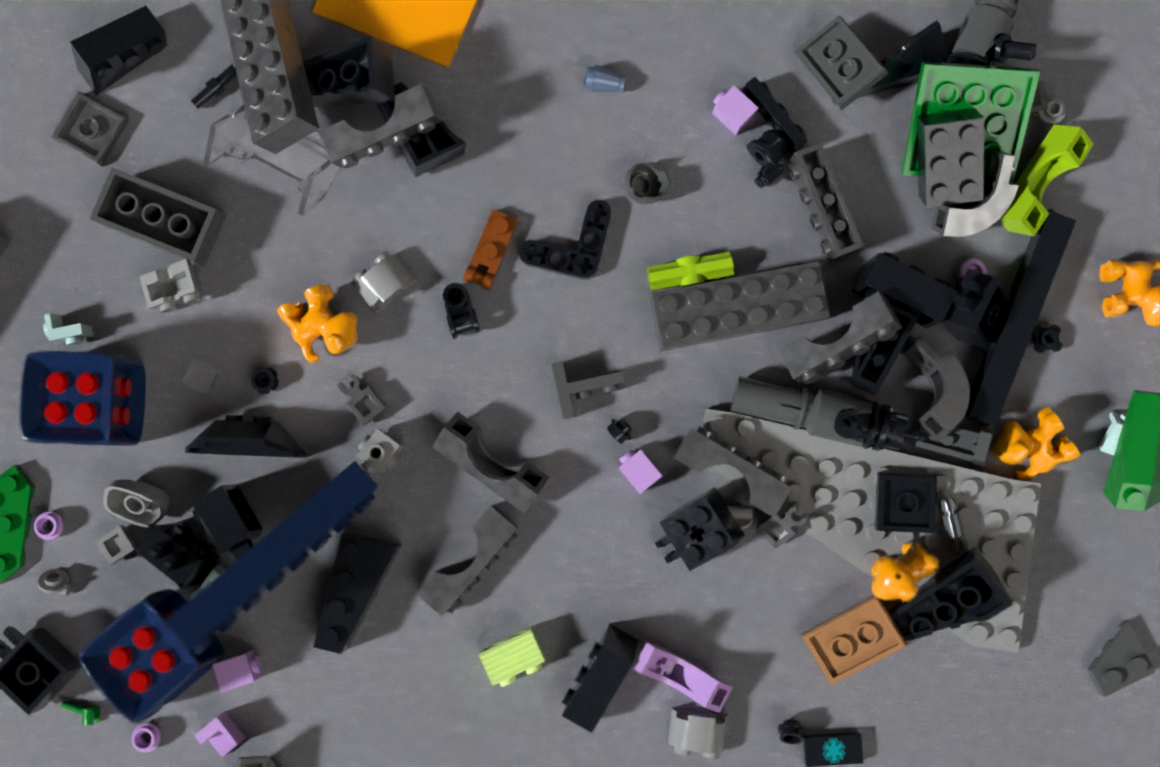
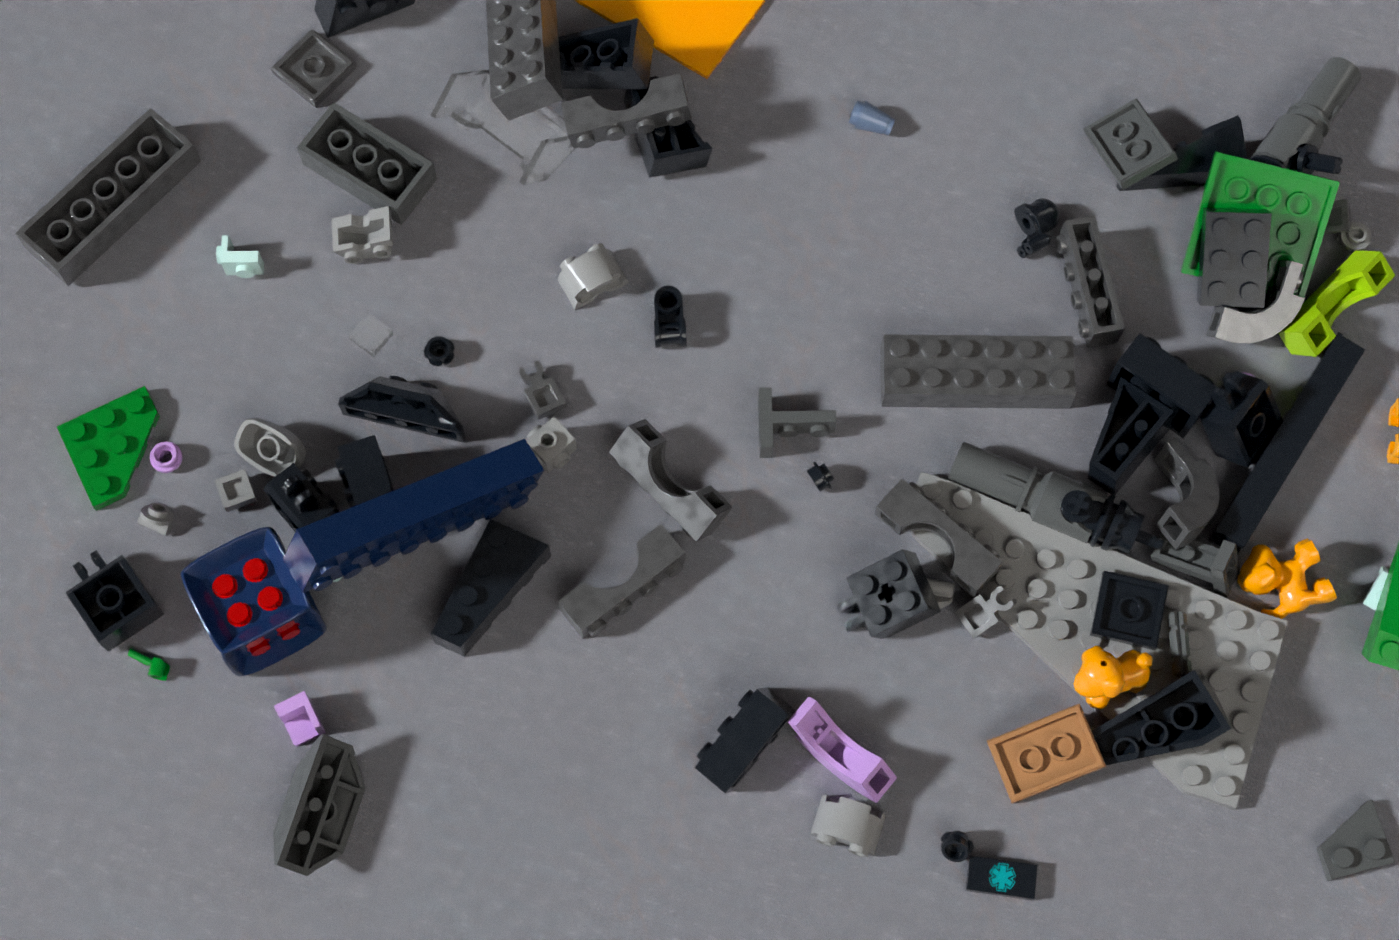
camera: 10 degrees right, 15 degrees down
(82, 398) = (246, 323): dark blue piece -> none
(138, 737) = (208, 699): lavender plate -> none
(214, 86) = (456, 50): black bar -> none
(237, 670) = (338, 650): lavender brick -> none
(337, 331) = (531, 311): light orange animal -> none
(491, 249) = (716, 265): dark orange plate -> none
(512, 656) = (651, 697): yellowish green brick -> none
(582, 252) = (813, 288): black beam -> none
(638, 470) = (834, 522): lavender brick -> none
(646, 183) = (898, 227): dark grey hair -> none
(690, 271) = (929, 322): lime piece -> none
(734, 109) = (1007, 173): lavender brick -> none
(775, 114) = (1048, 183): black plate -> none
(872, 322) = (1117, 405): flat silver arch -> none
(1039, 334) = (1309, 474): black plate -> none

